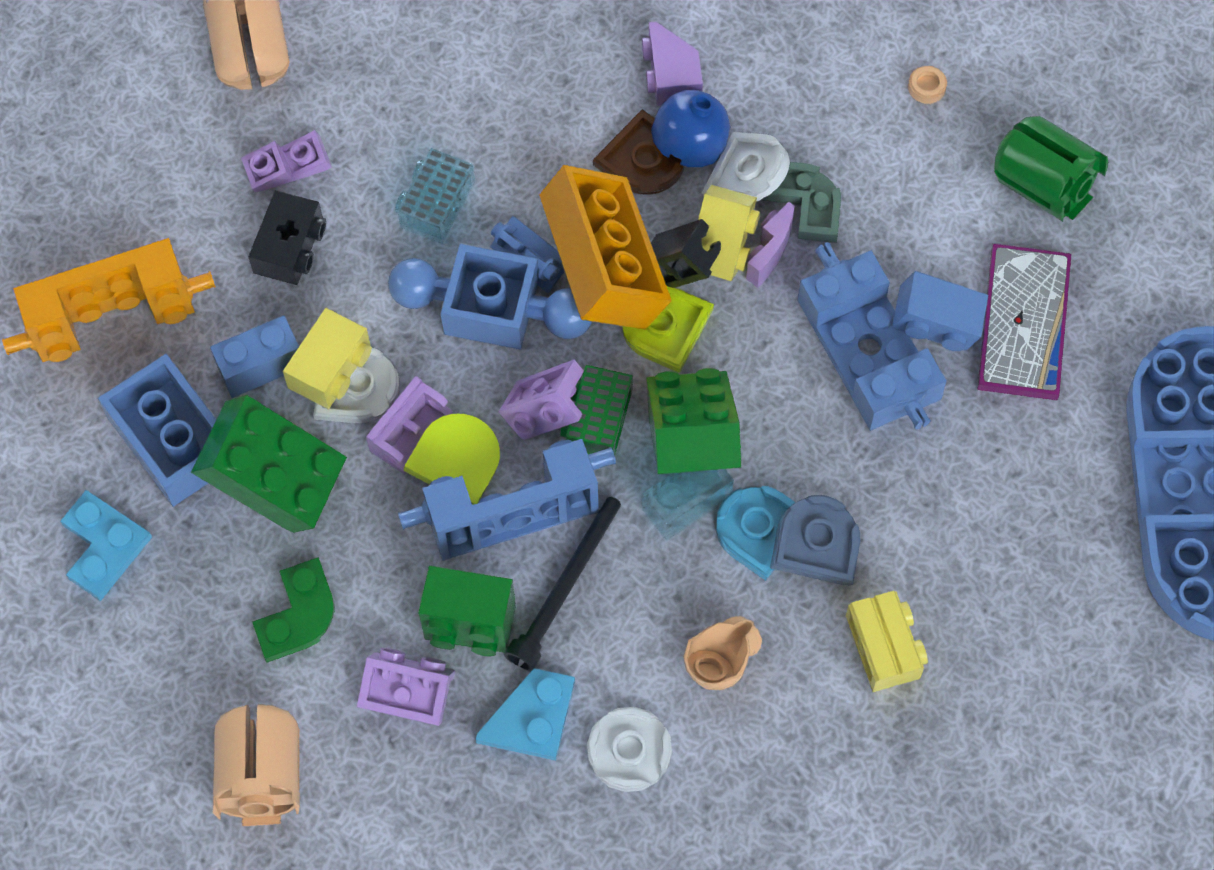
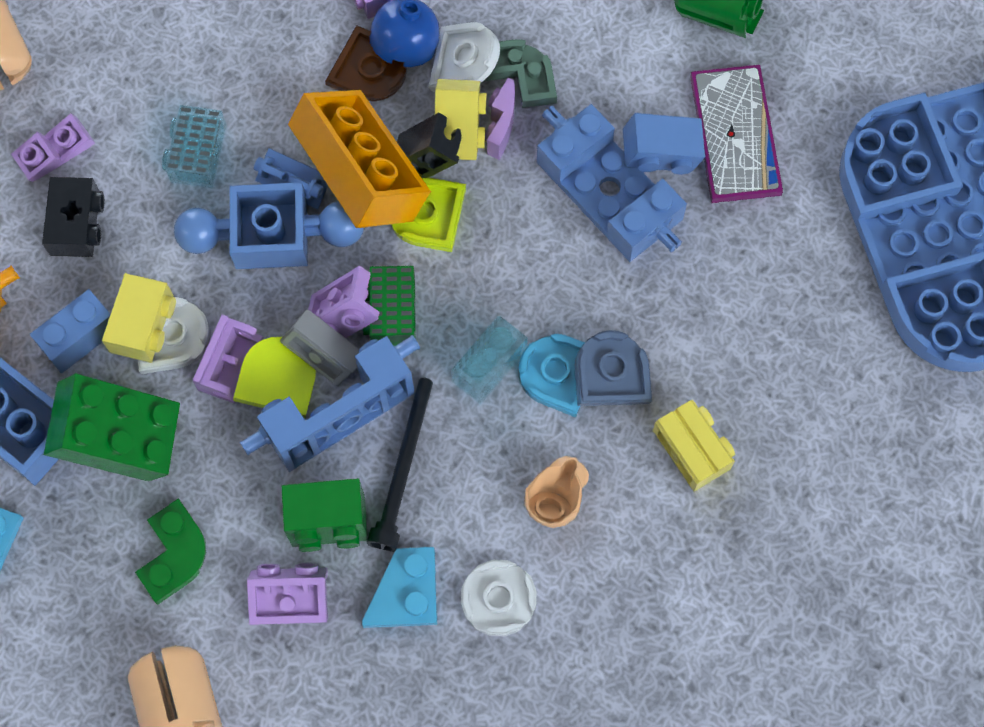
camera: 15 degrees left, 5 degrees up
(511, 436) = (321, 347): none -> light grey slope
(693, 421) = (479, 295): green brick -> none

